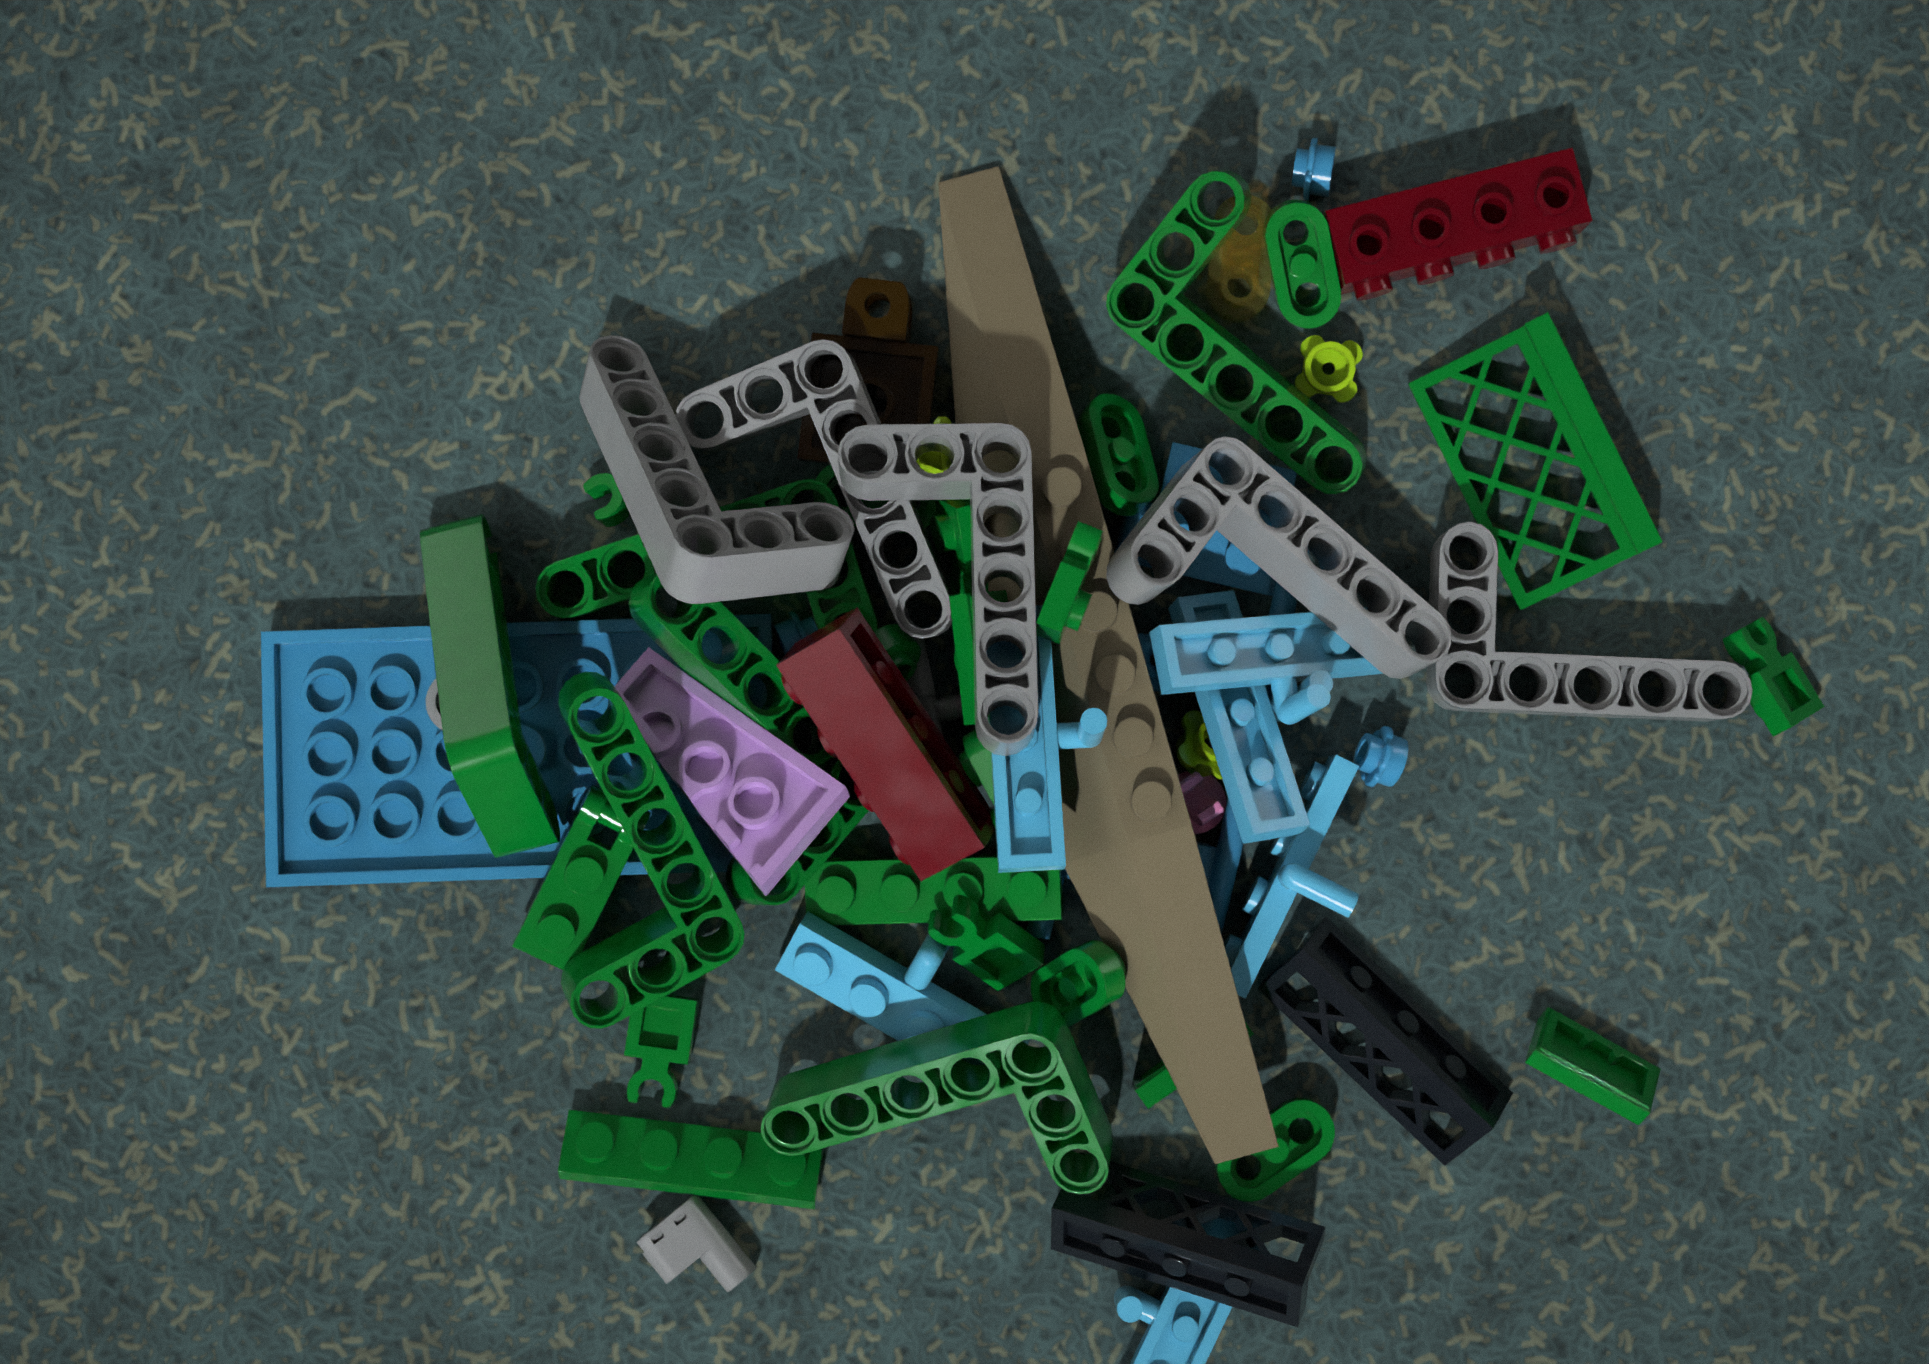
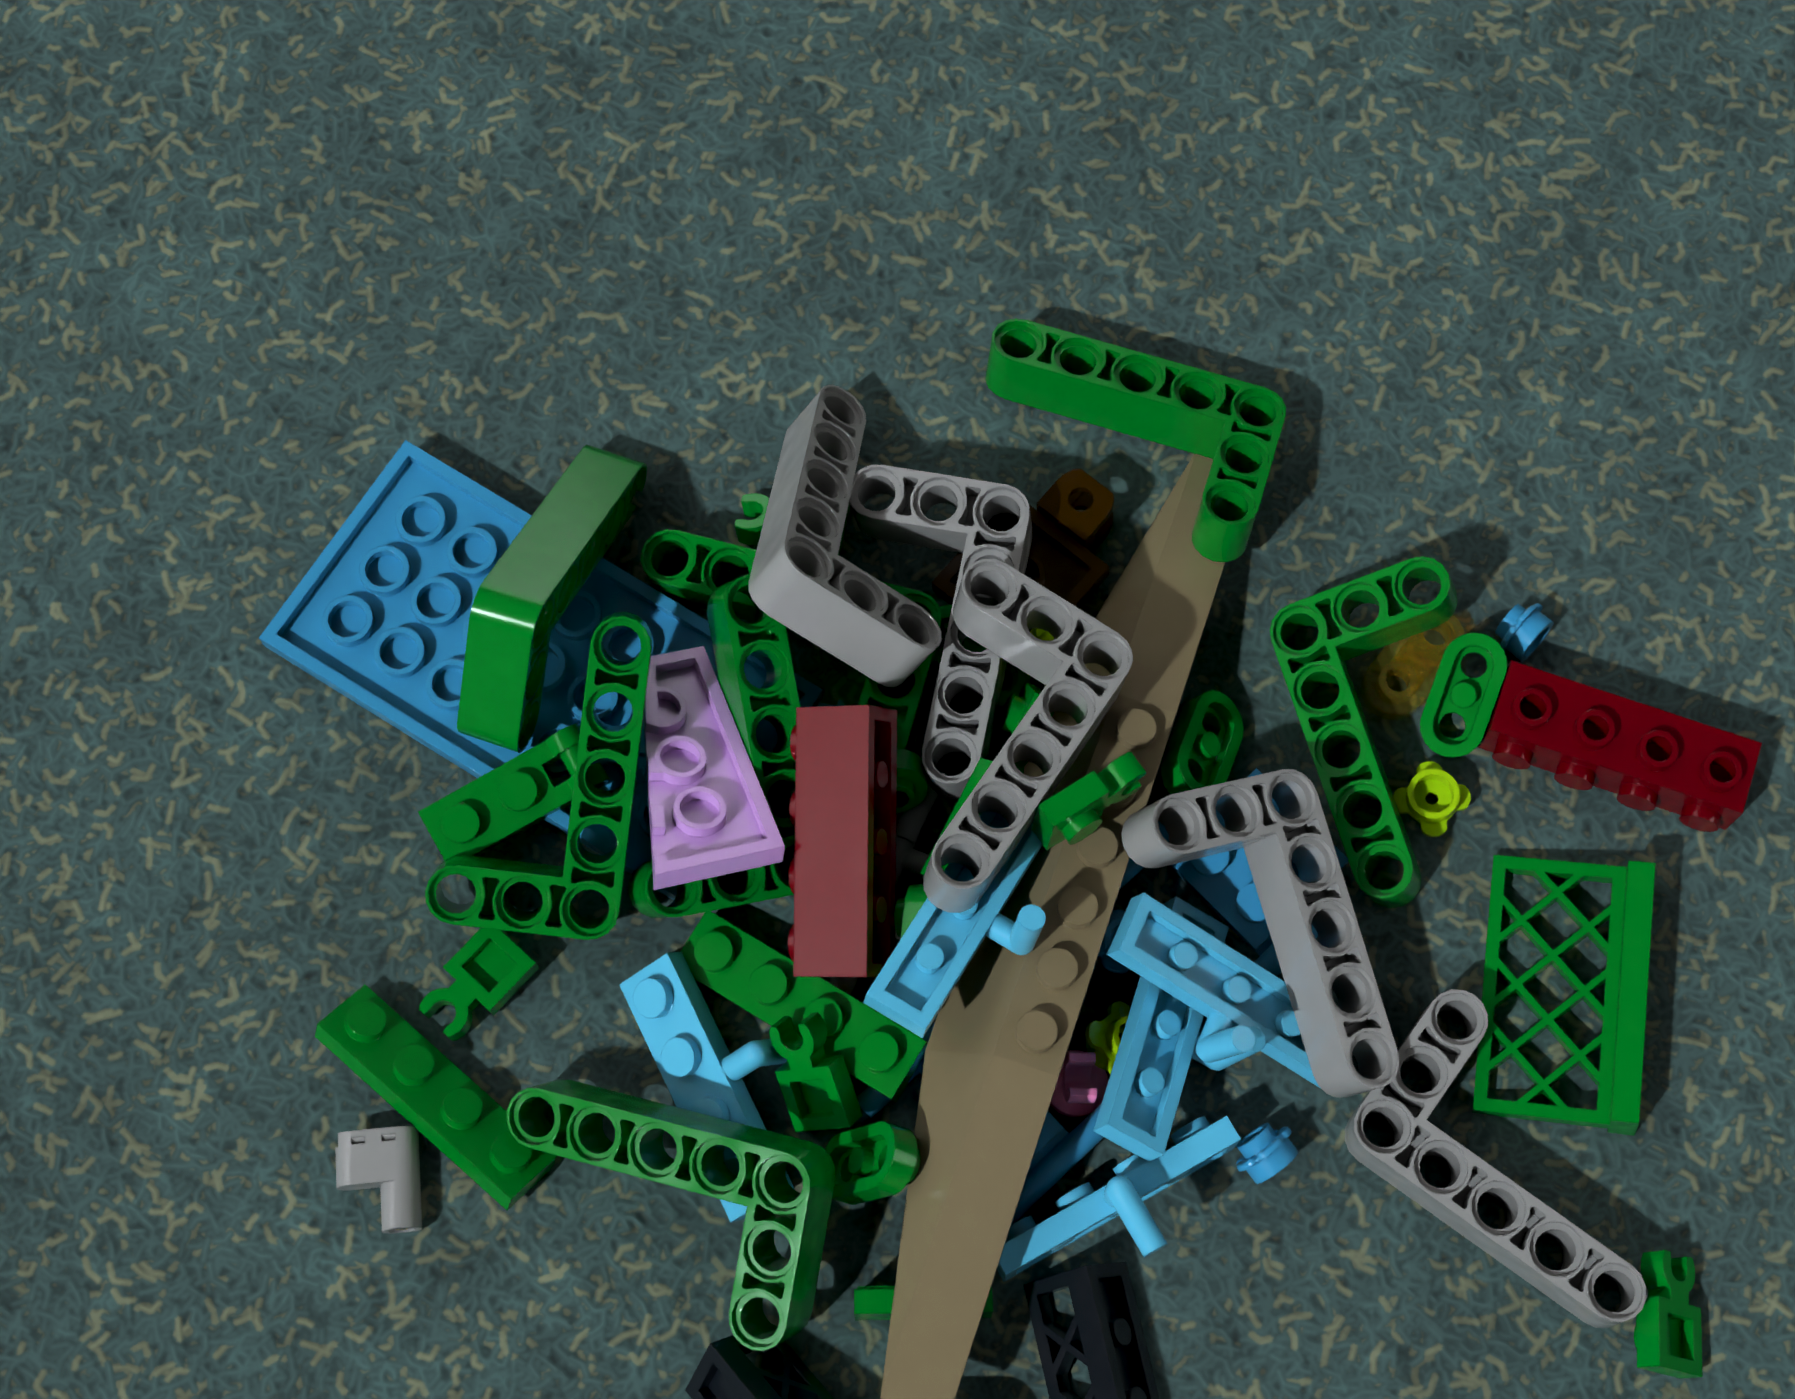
camera: 30 degrees right, 15 degrees down
(887, 181) = (1156, 402): none -> green beam

